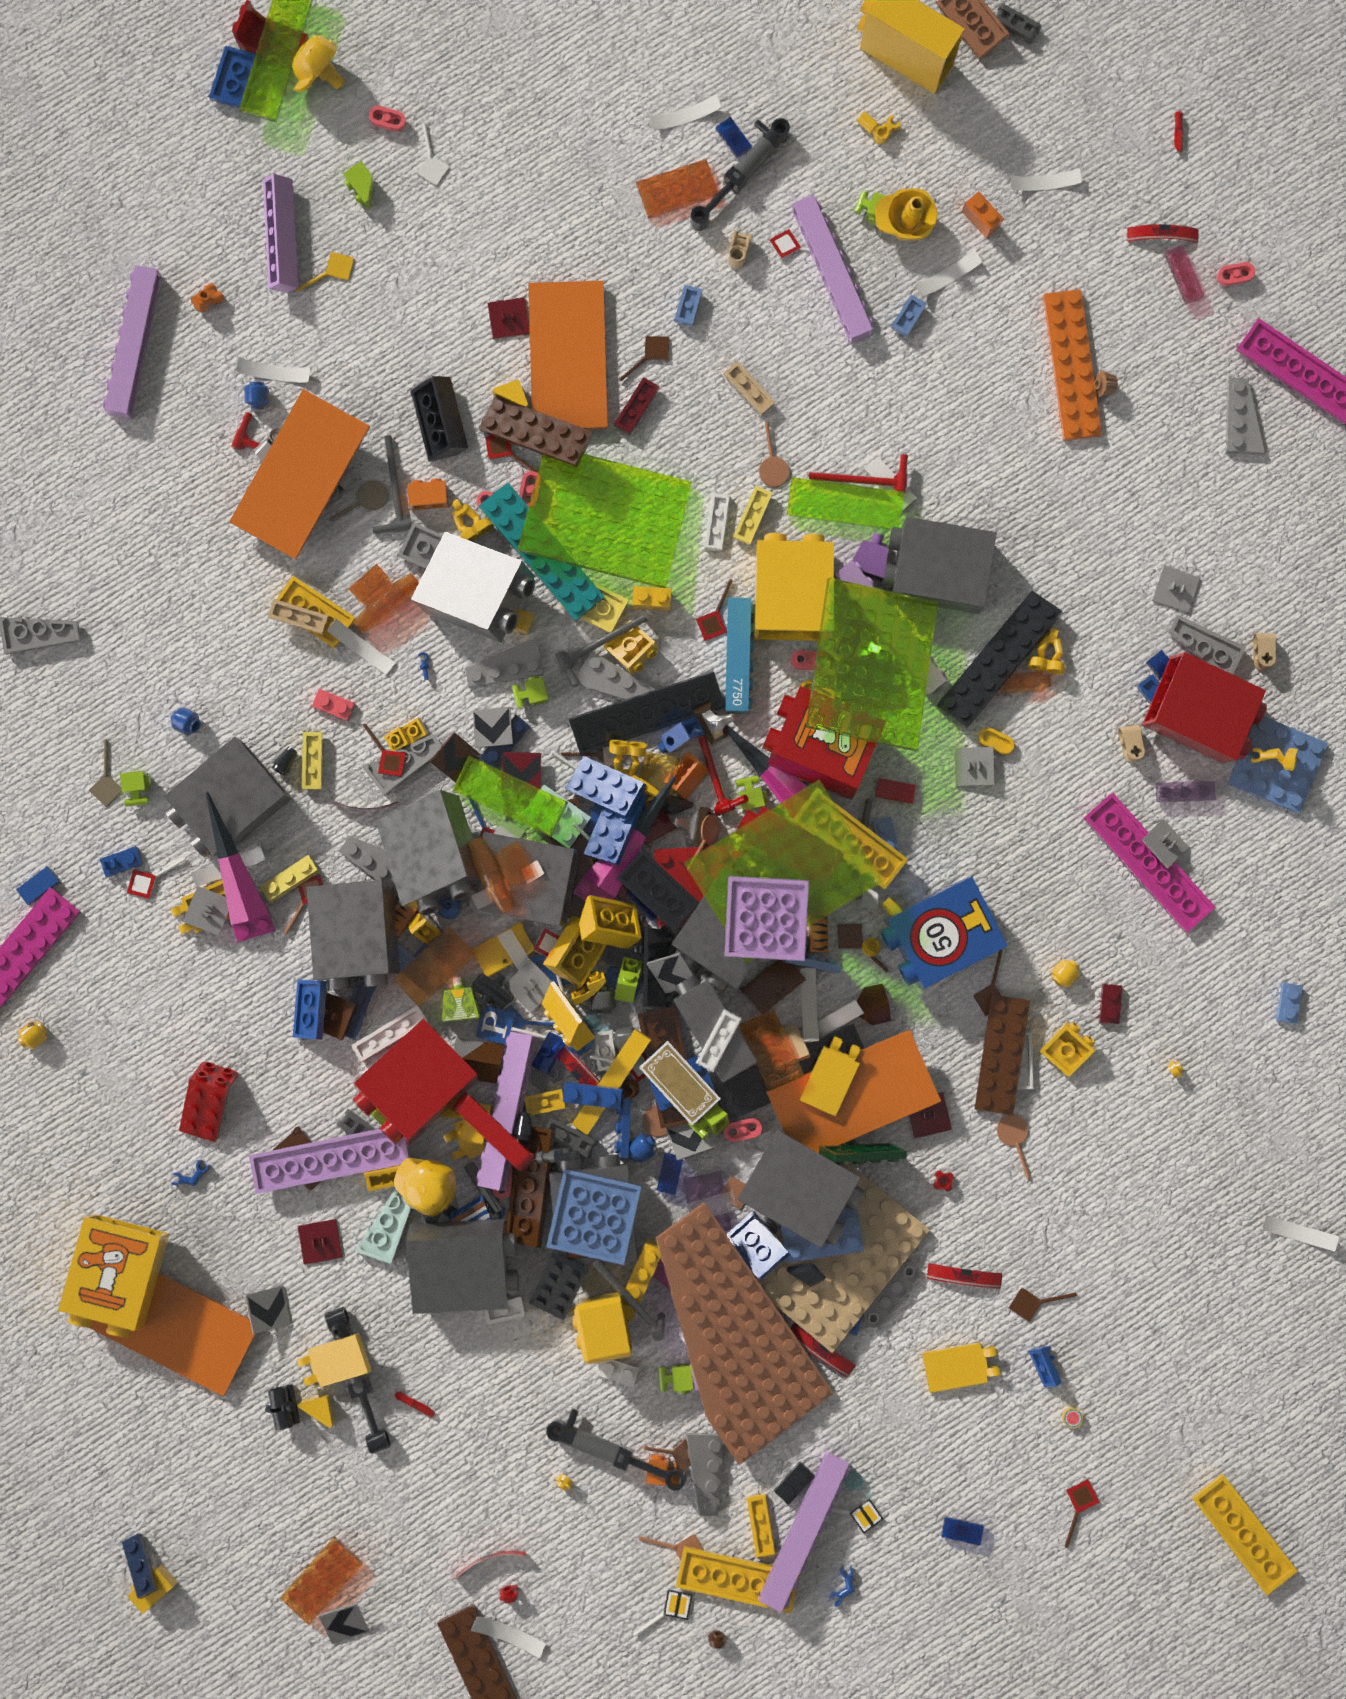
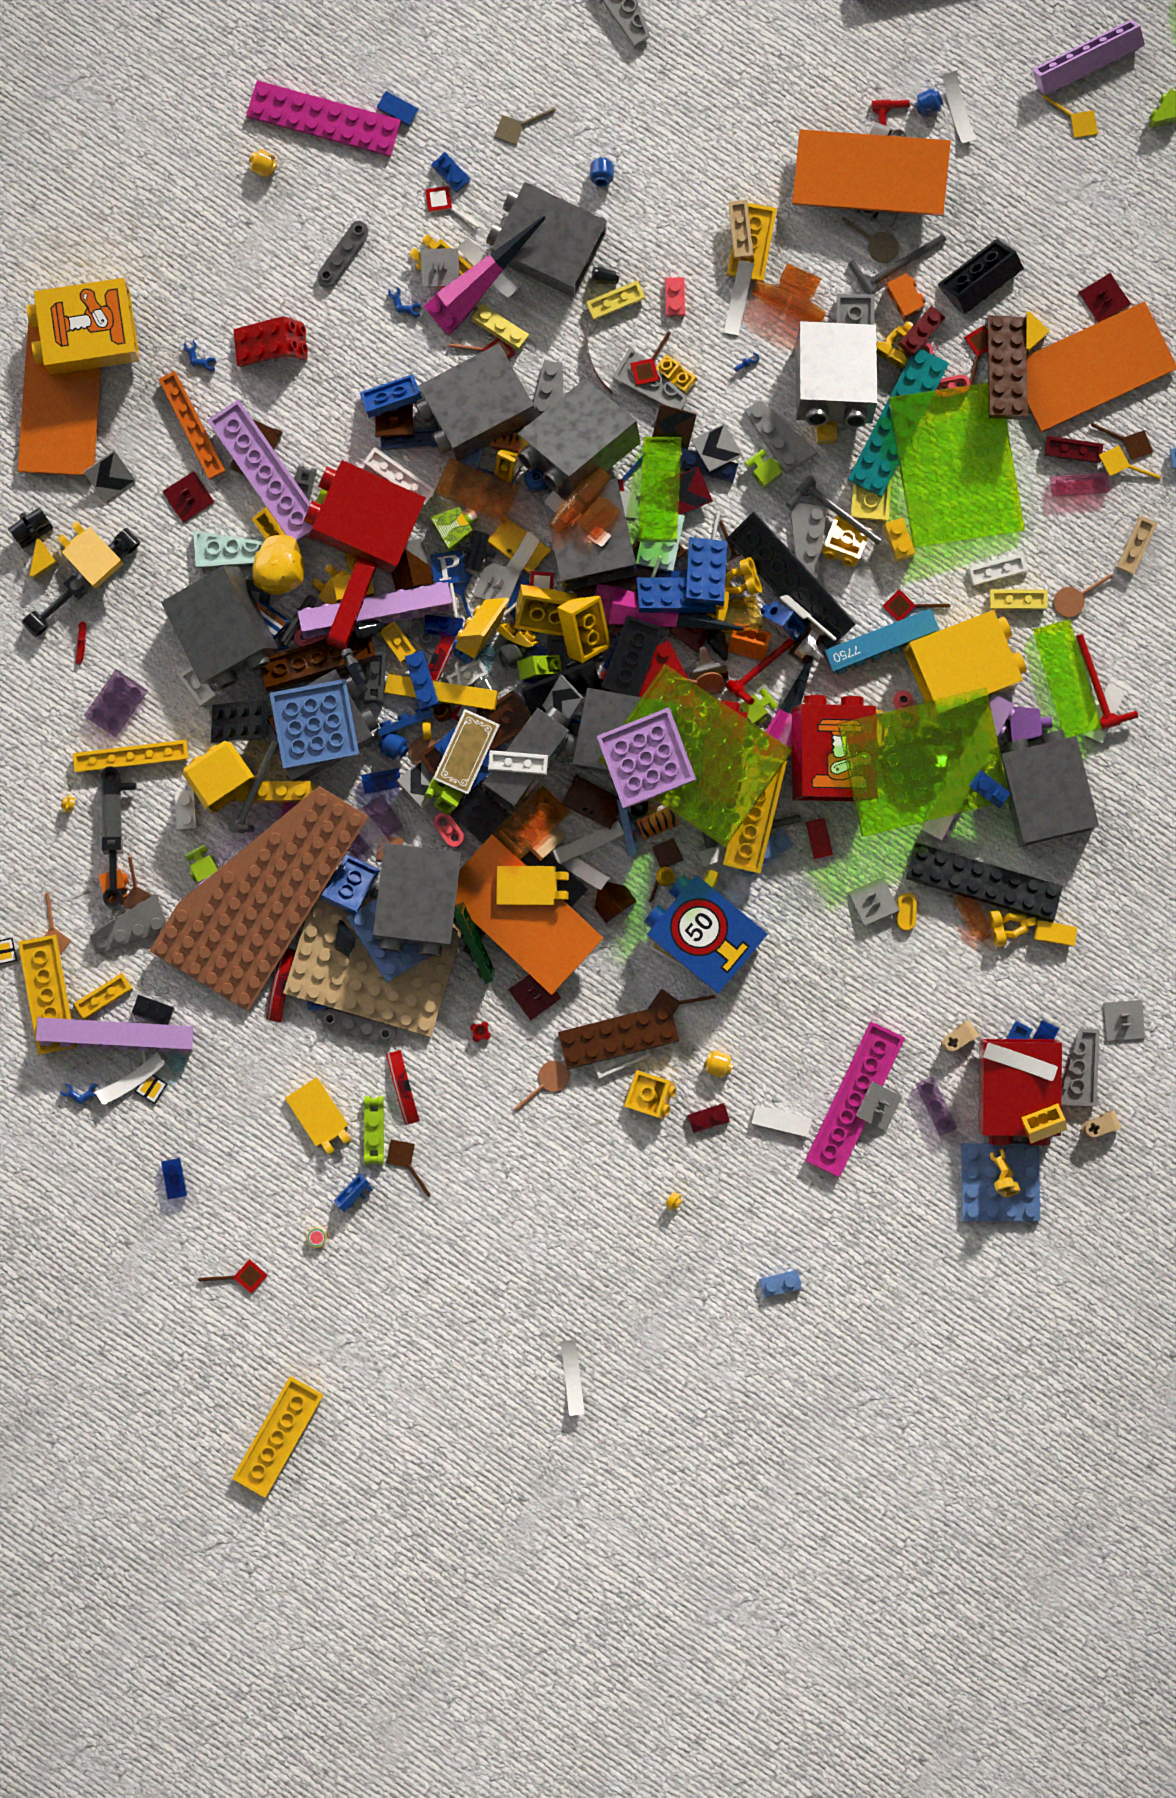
camera: 70 degrees right, 0 degrees up
(135, 784) = (525, 152): lime brick -> none
(153, 996) = (342, 254): none -> flat silver plate
(207, 297) = (1000, 18): orange plate -> none
(231, 961) = (399, 308): none -> blue arm
(253, 1209) = (192, 425): none -> orange plate
(467, 494) = (921, 331): none -> dark red plate
(487, 1395) = (115, 703): none -> clear purple plate
(544, 1402) = (131, 756): none -> yellow plate
(640, 1110) = (427, 730): none -> yellow tile
(664, 373) = (1115, 461): none -> yellow piece
(671, 414) = (1079, 484): none -> clear pink plate
(685, 714) = (804, 614): none -> white piece
(852, 1533) = (131, 1080): none -> white sticker
(921, 615) = (989, 789): none -> blue plate
(994, 1320) = (373, 1130): none -> lime plate
(1073, 615) = (1055, 933): none -> yellow slope
(1140, 938) = (781, 1120): none -> white tile
(1187, 695) = (1020, 1061): none -> white sticker
(1251, 699) = (1044, 1123): none -> yellow brick

